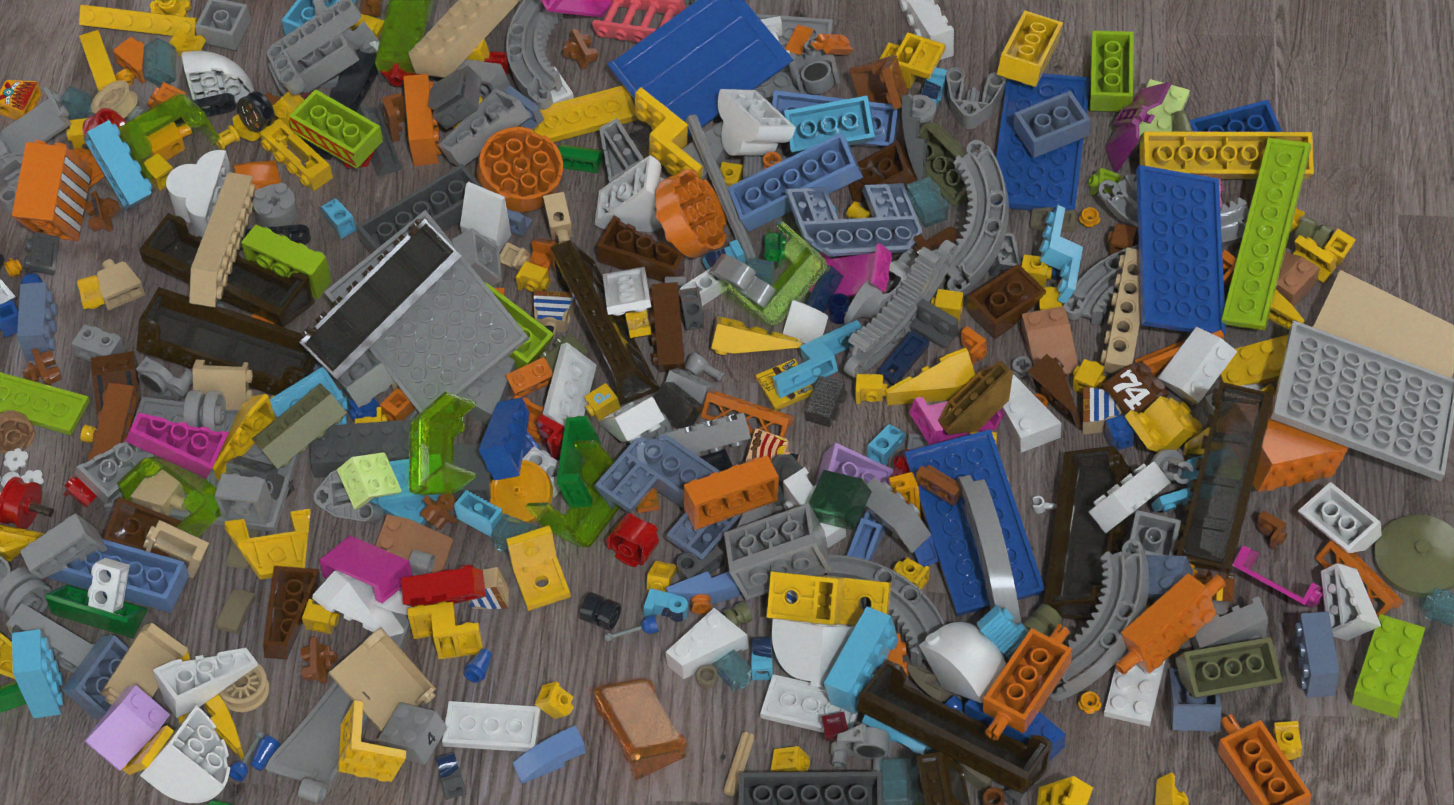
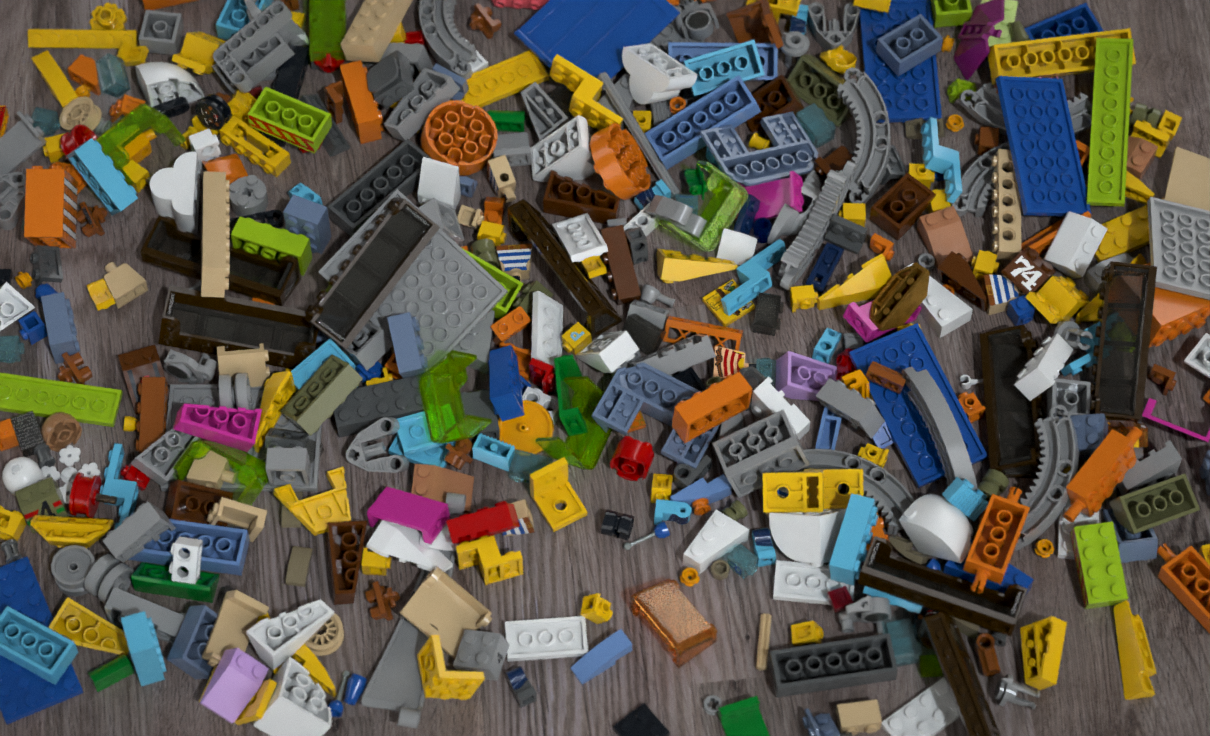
camera: 15 degrees left, 5 degrees up
(63, 503) = (124, 490): none -> medium azure bracket
(94, 342) = (117, 341): light grey brick -> none
(238, 147) = (205, 145): none -> white brick
(254, 47) = (198, 52): none -> yellow bracket
(331, 237) = (310, 220): none -> sand blue brick
(368, 478) = (394, 435): yellowish green bracket -> none
(403, 382) = (407, 345): none -> sand blue brick
(478, 666) = (522, 587): blue cone -> none
(522, 295) = (486, 251): none -> olive wheel
(580, 189) = (515, 148): none -> light grey bracket
(667, 675) = (689, 572): none -> light orange plate
(811, 460) = (767, 368): none -> clear light blue brick
(839, 499) = (805, 401): clear green brick -> none
(915, 146) = (798, 77): dark grey slope -> none
(968, 131) = (839, 59): none -> yellow hair
(1037, 533) = (975, 410): none -> orange brick
(1099, 129) = (947, 43): none -> light orange plate
(1147, 728) = (1098, 565): none -> lime brick

